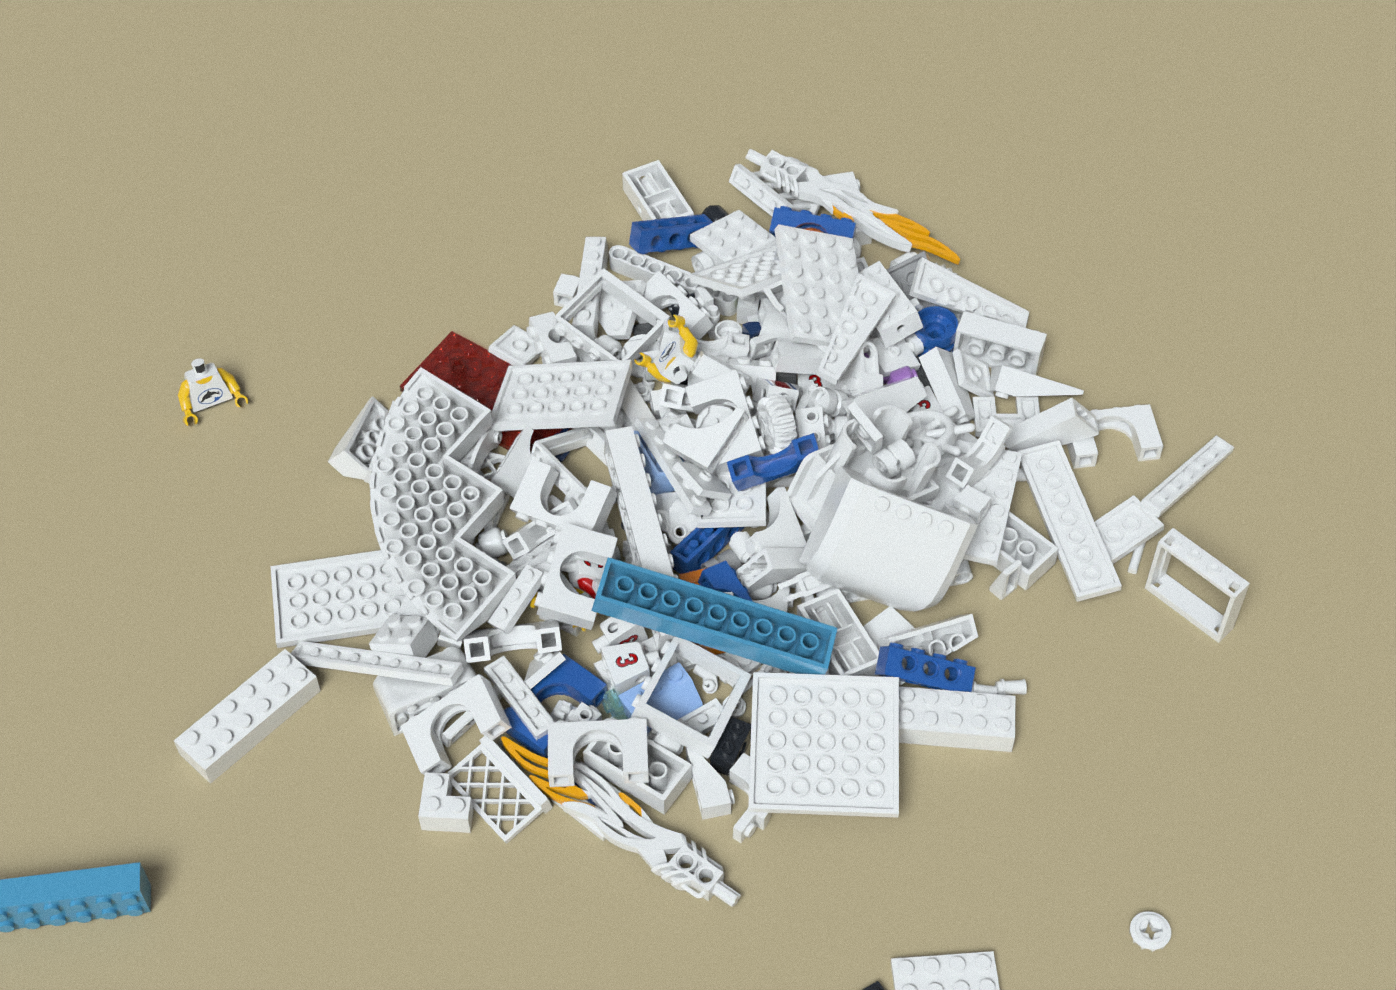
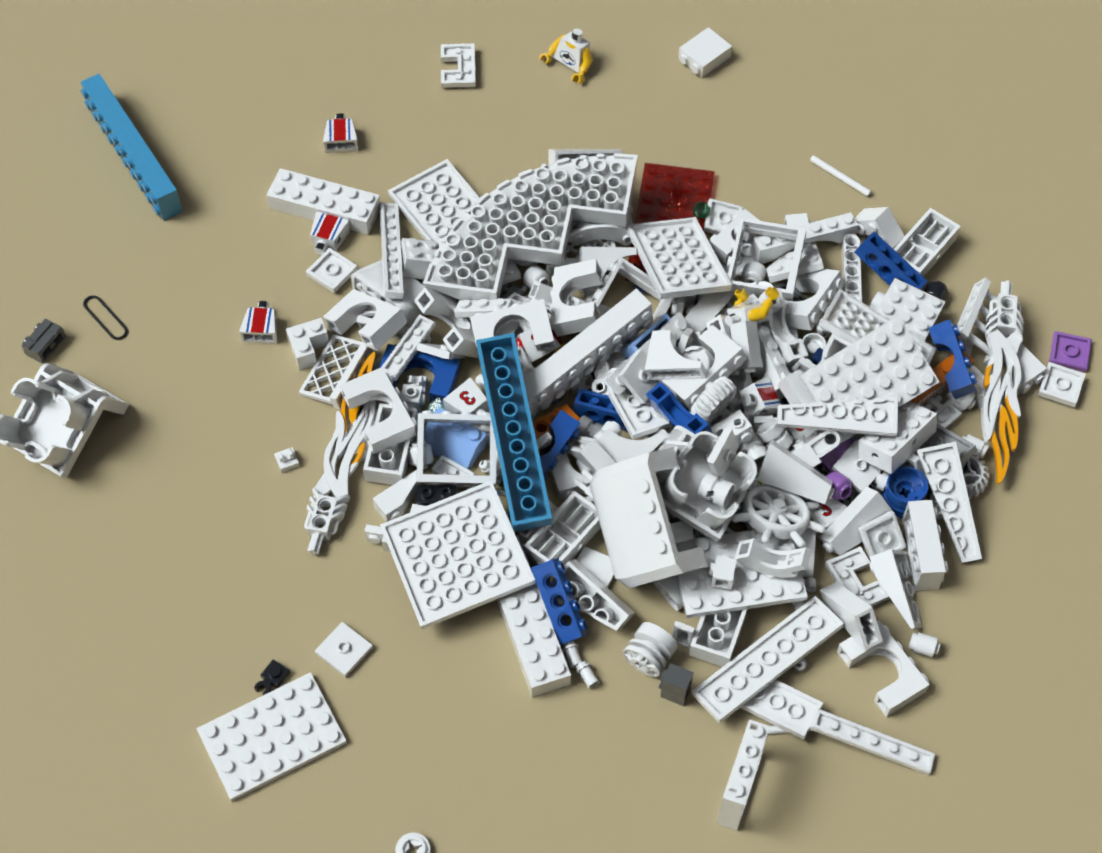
camera: 65 degrees right, 5 degrees up
(156, 504) = (466, 65): none -> white plate
(158, 662) = (340, 135): none -> white torso
(289, 274) = (705, 52): none -> white brick
(295, 728) = (328, 232): none -> white torso
(352, 744) = (331, 270): none -> white plate
(386, 848) = (259, 325): none -> white torso
(501, 358) = (701, 210): none -> clear green plate
(524, 232) = (840, 176): none -> white bar
(592, 887) = (287, 460): none -> white tile
(611, 221) = (880, 221): none -> white brick
(835, 152) = (1070, 351): none -> medium lavender tile
(872, 172) = (1061, 384): none -> white plate
(875, 915) = (343, 649): none -> white plate
(1014, 614) = (650, 649): none -> white wheel
(1063, 607) = (676, 684): none -> dark grey brick
(1100, 394) = (924, 644): none -> white brick

